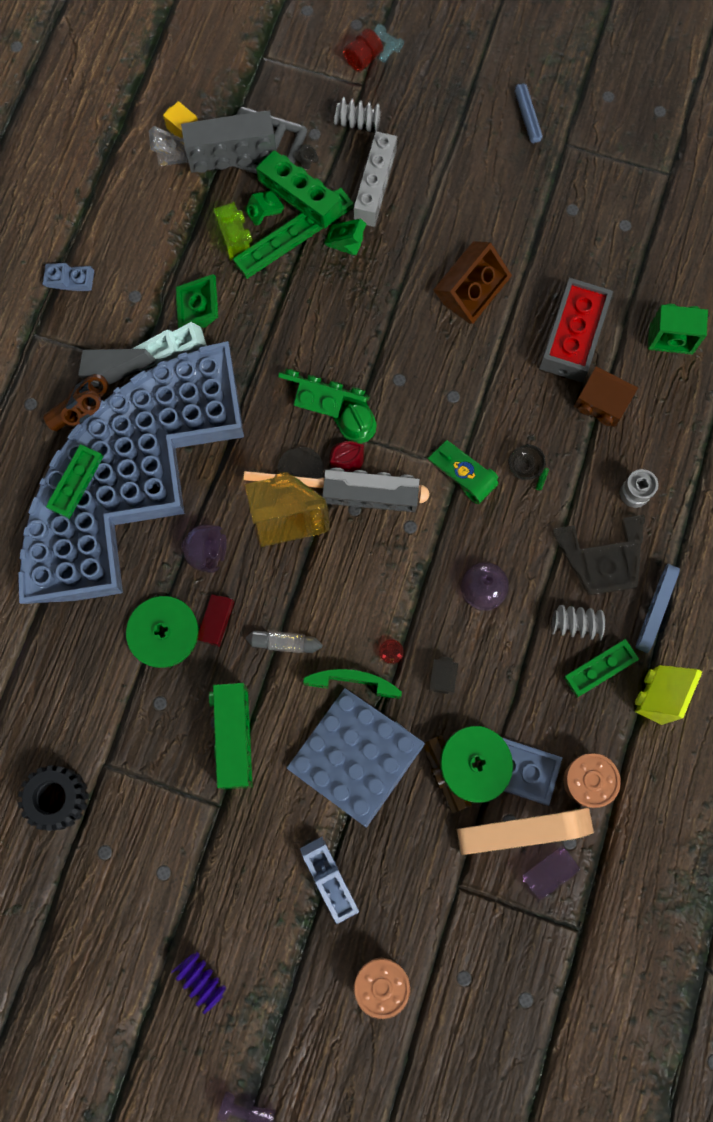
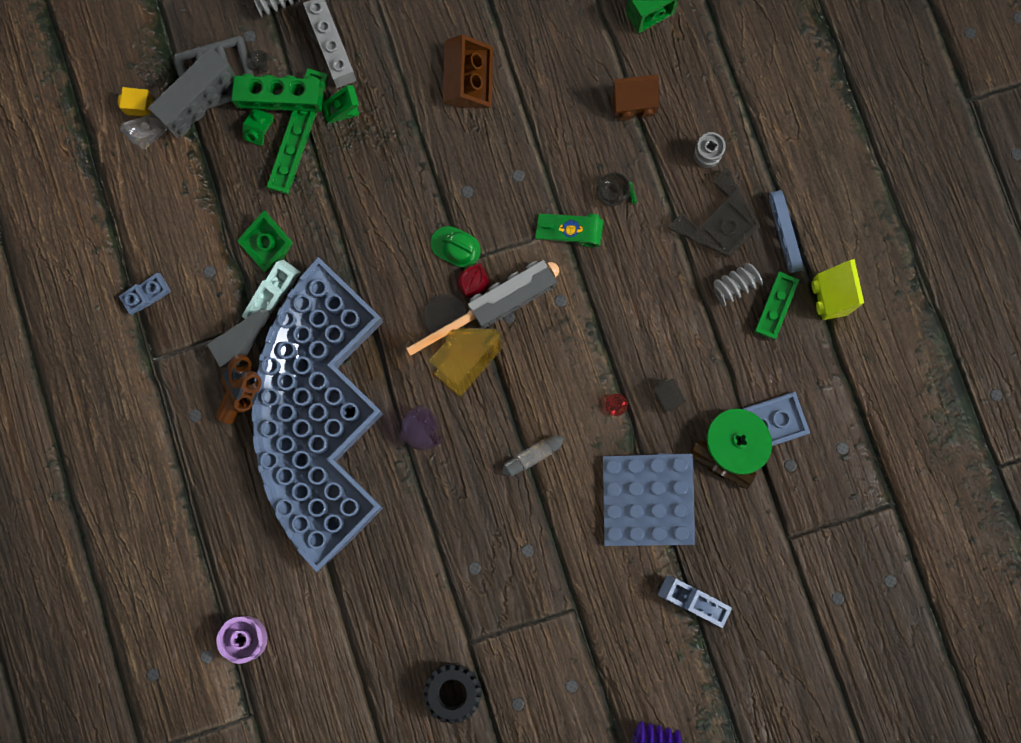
camera: 35 degrees left, 5 degrees up
(74, 481) = (287, 451): green plate -> none
(146, 623) = (418, 515): green piece -> none
(215, 620) = (468, 477): dark red slope -> none
(231, 228) = (245, 162): clear neon green brick -> none
(232, 735) = (550, 551): green brick -> none
(320, 396) = (419, 247): green bracket -> none
(322, 678) = (630, 435): green slope -> none
(382, 988) = (788, 646): nougat wheel -> none
(480, 594) = (645, 314): clear purple cylinder -> none
(525, 831) = (832, 442): light nougat beam -> none
(550, 873) = (846, 480): clear purple hinge -> none
(576, 330) = (575, 57): brick -> none
(592, 781) = (829, 393): nougat wheel -> none

